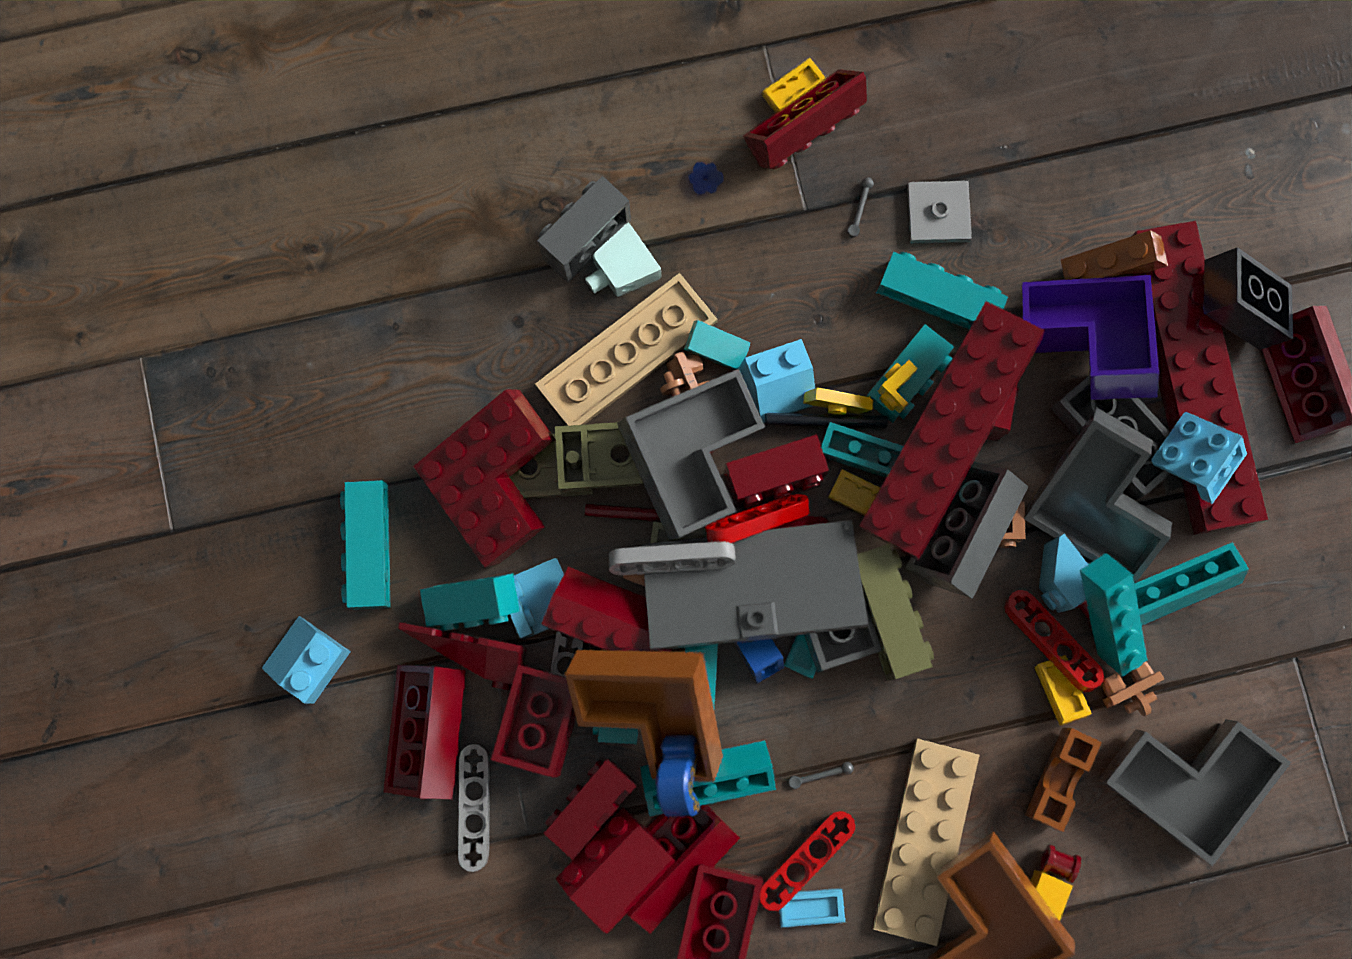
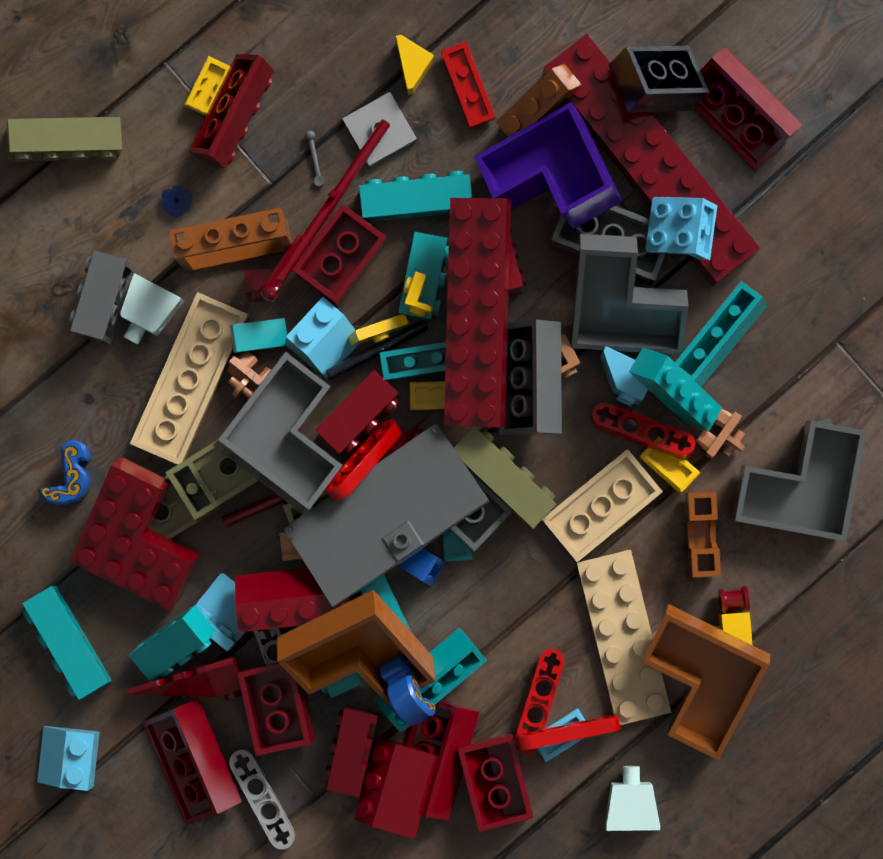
camera: 25 degrees left, 5 degrees up
(464, 390) = (75, 476): none -> blue animal
(628, 62) = (63, 139): none -> olive wedge
(672, 558) = (312, 528): light grey beam -> none
(741, 236) = (230, 240): none -> dark orange window
(744, 297) = (253, 281): none -> dark red brick
(753, 303) = (299, 245): none -> dark red bar
(821, 909) = (567, 732): none -> red beam
(839, 309) = (340, 255): none -> dark red brick
(846, 768) = (534, 614): dark grey hinge -> none
(972, 694) = (602, 505): none -> tan plate
(1007, 165) = (414, 62): none -> yellow slope
(1048, 213) = (468, 85): none -> red plate

